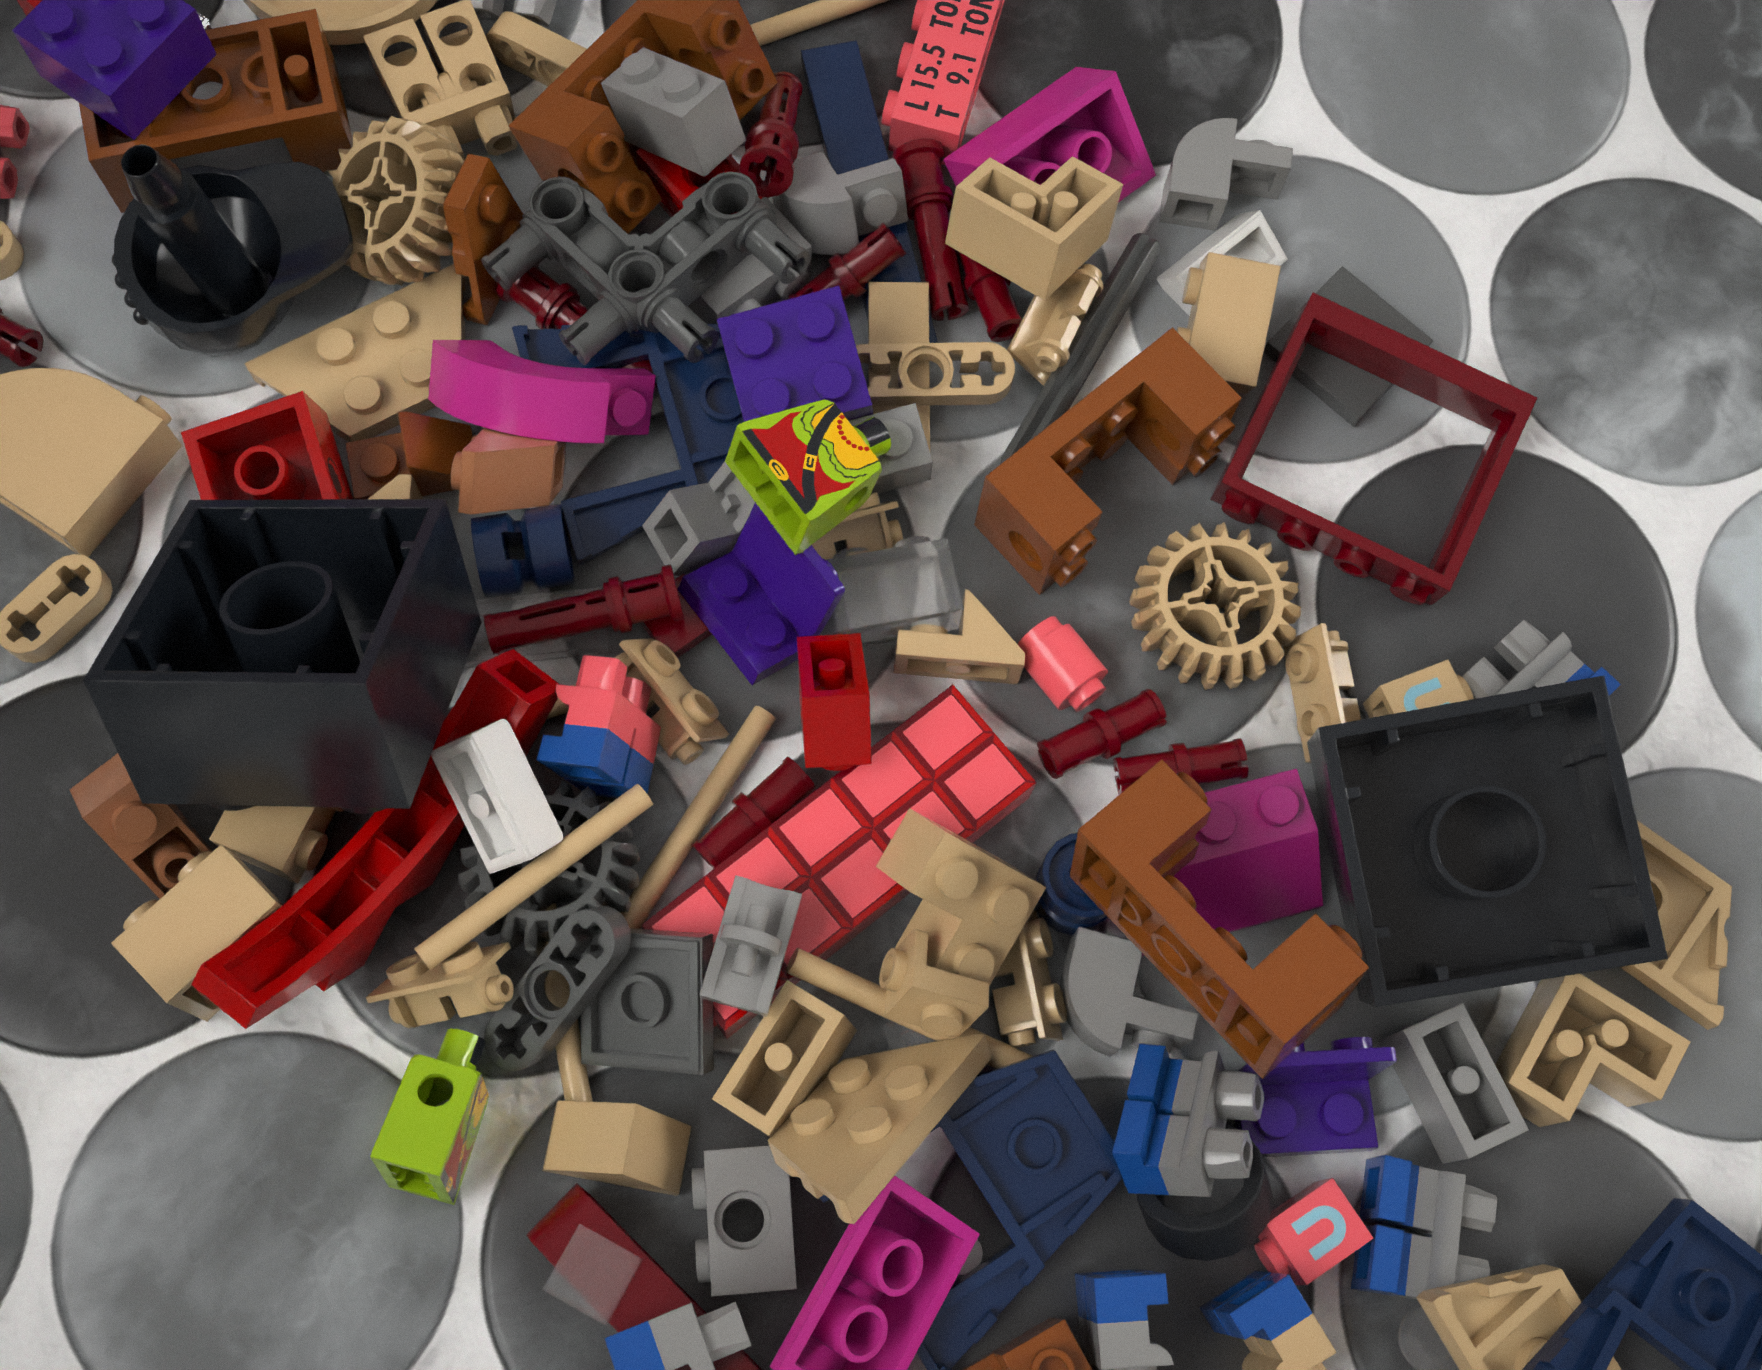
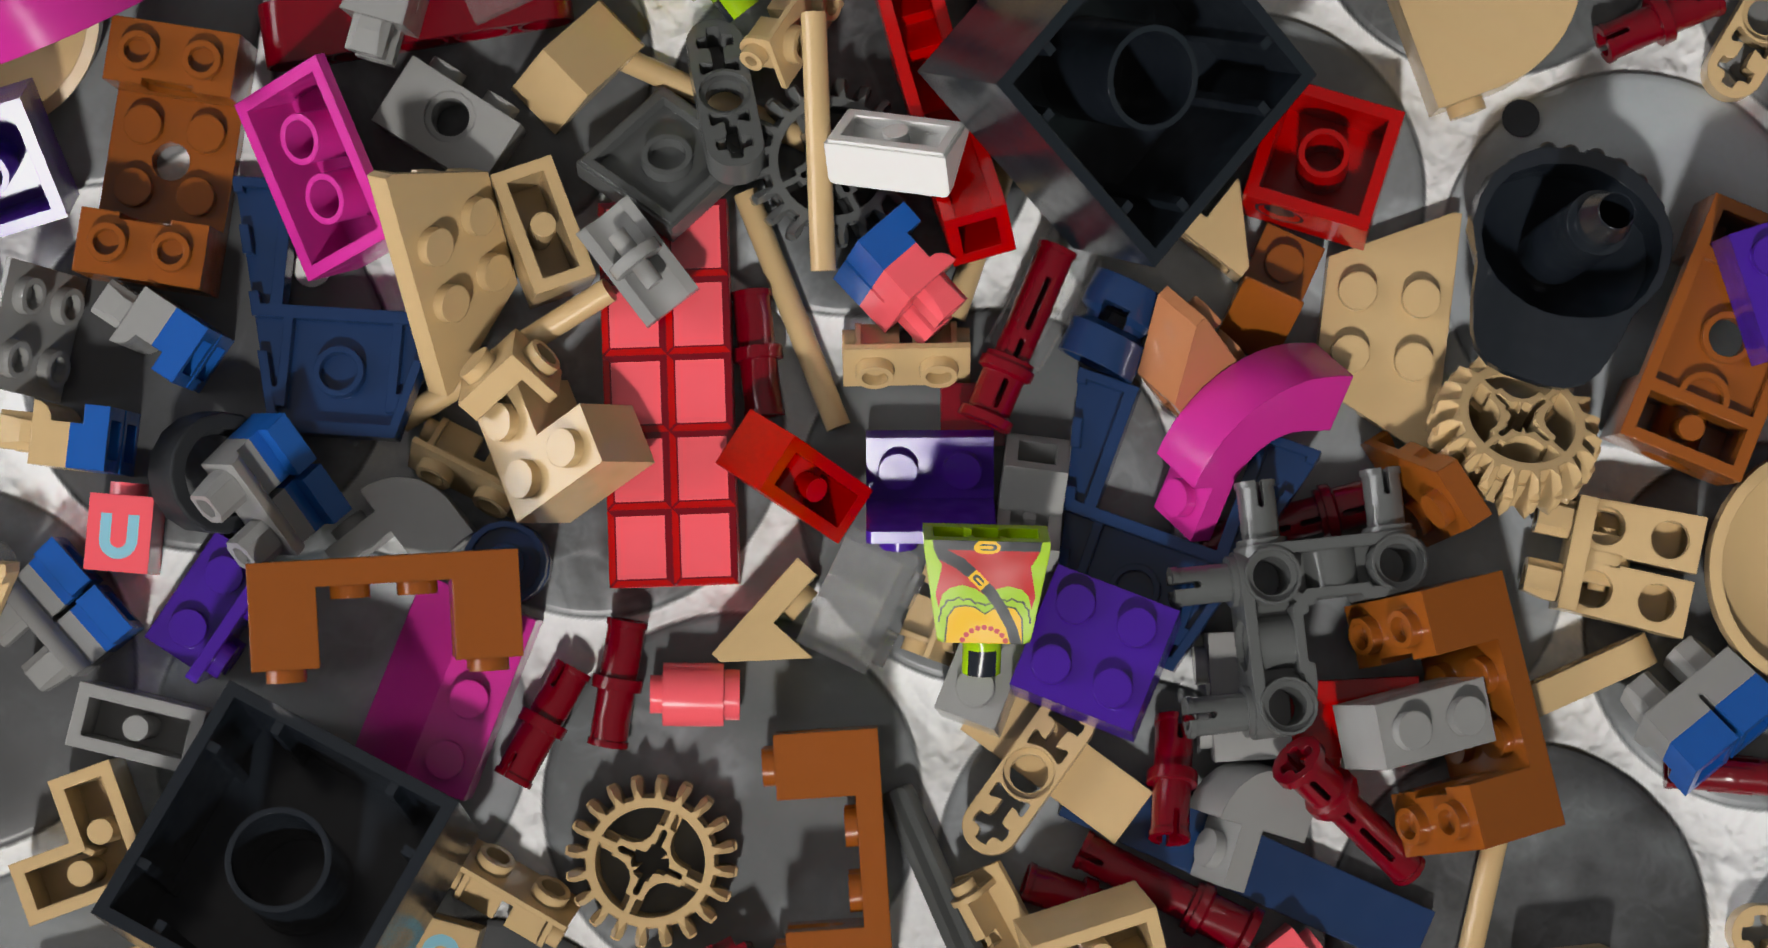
camera: 135 degrees right, 15 degrees up
(136, 378) = (1520, 118): none -> black sticker

